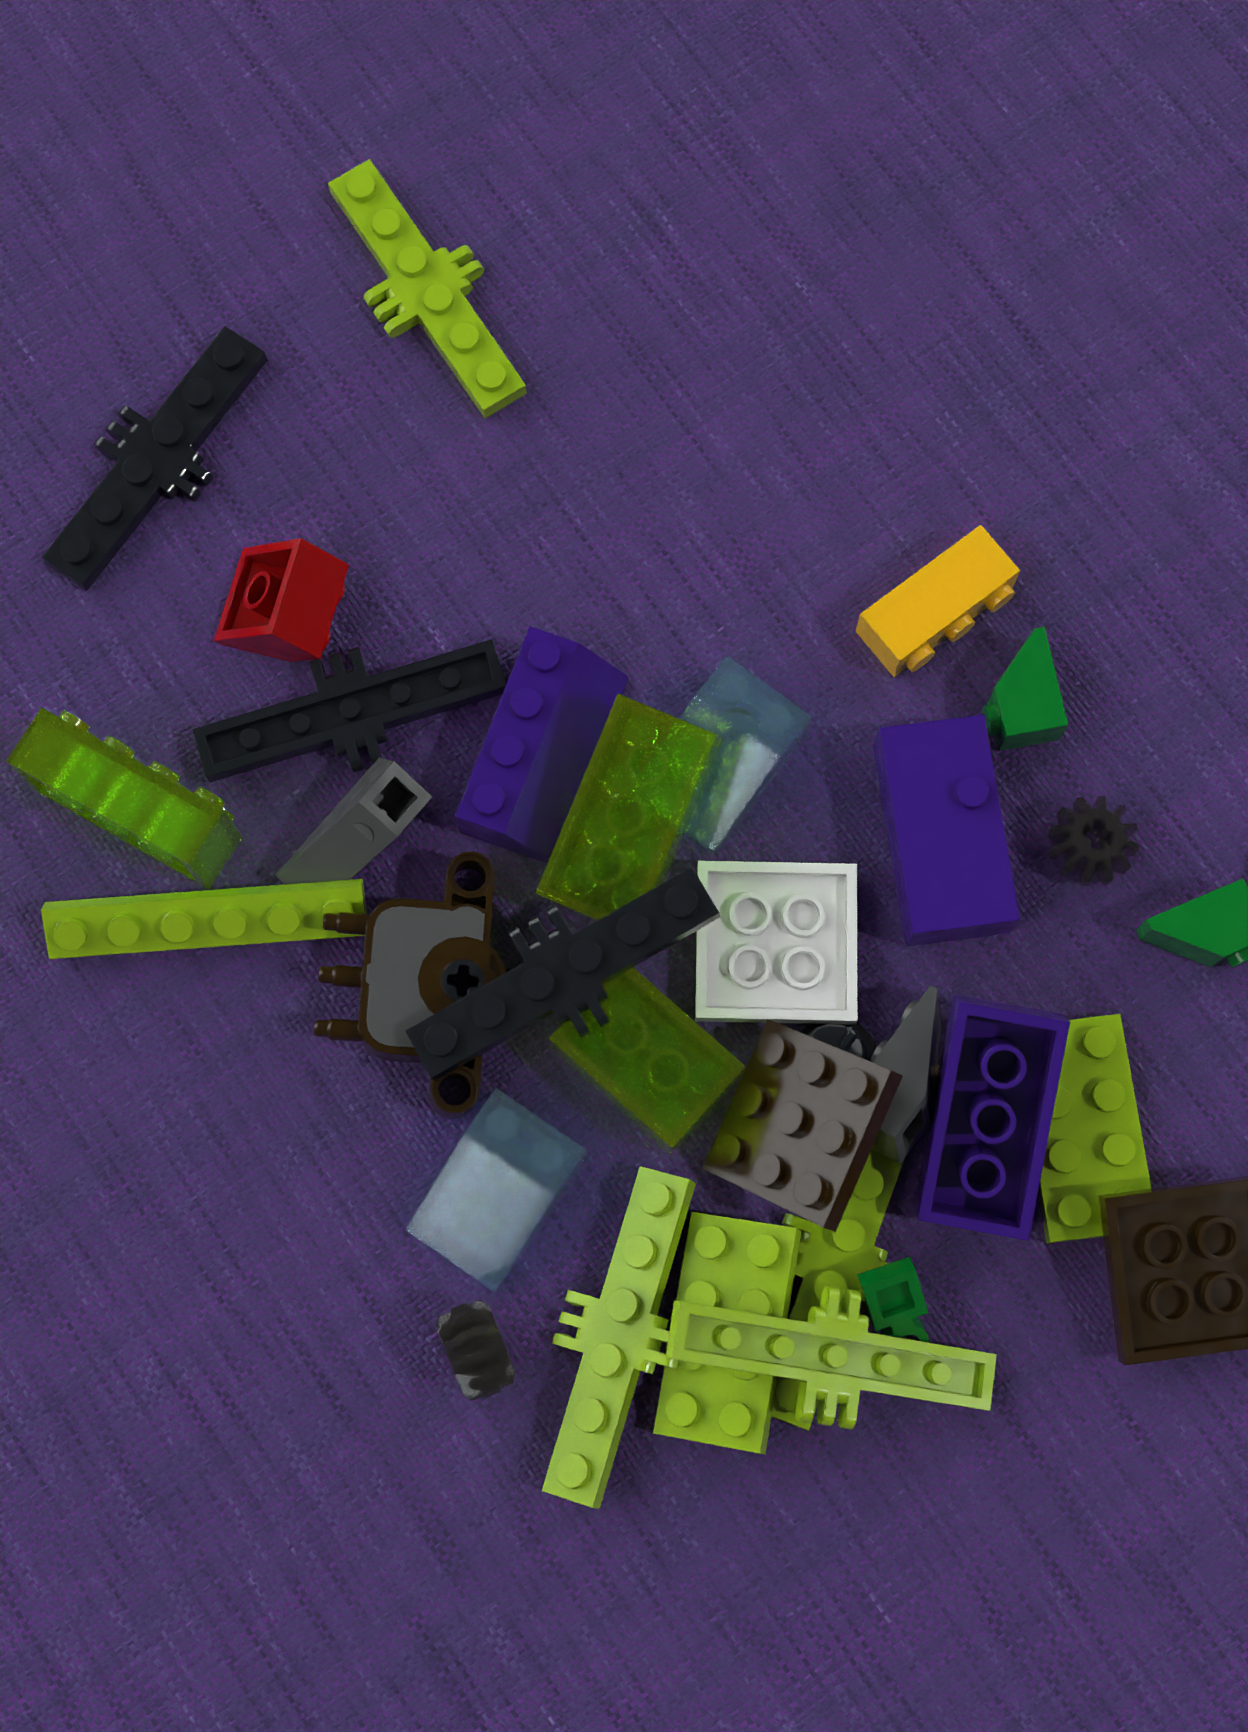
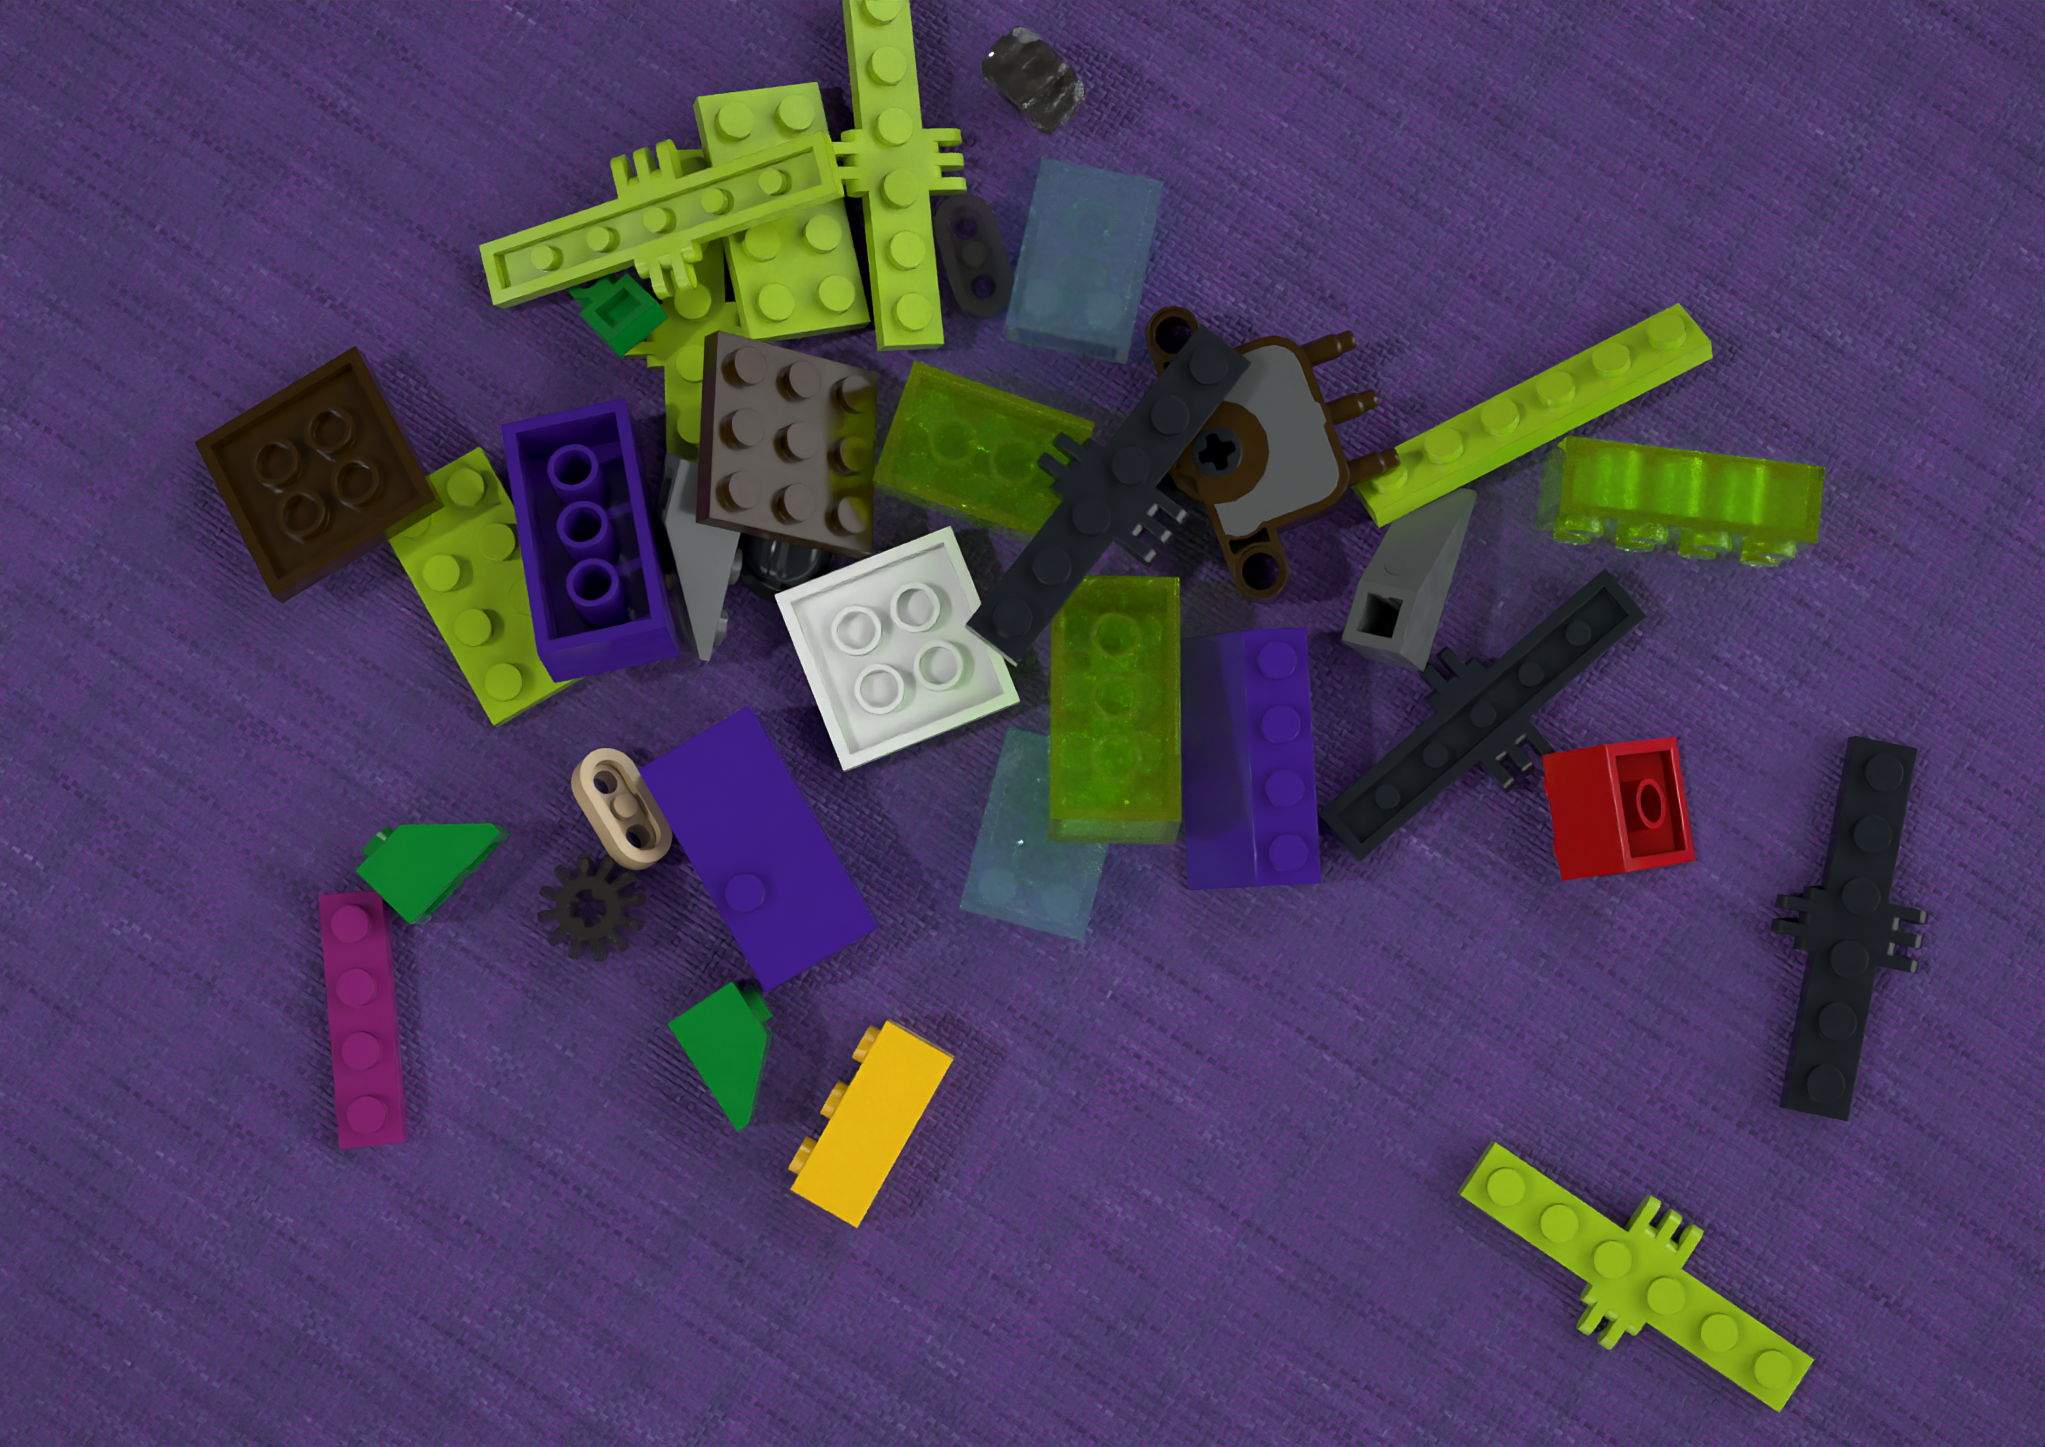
camera: 155 degrees right, 10 degrees up
(584, 1229) = (974, 258): none -> clear smoke plate
(1043, 907) = (624, 809): none -> tan plate

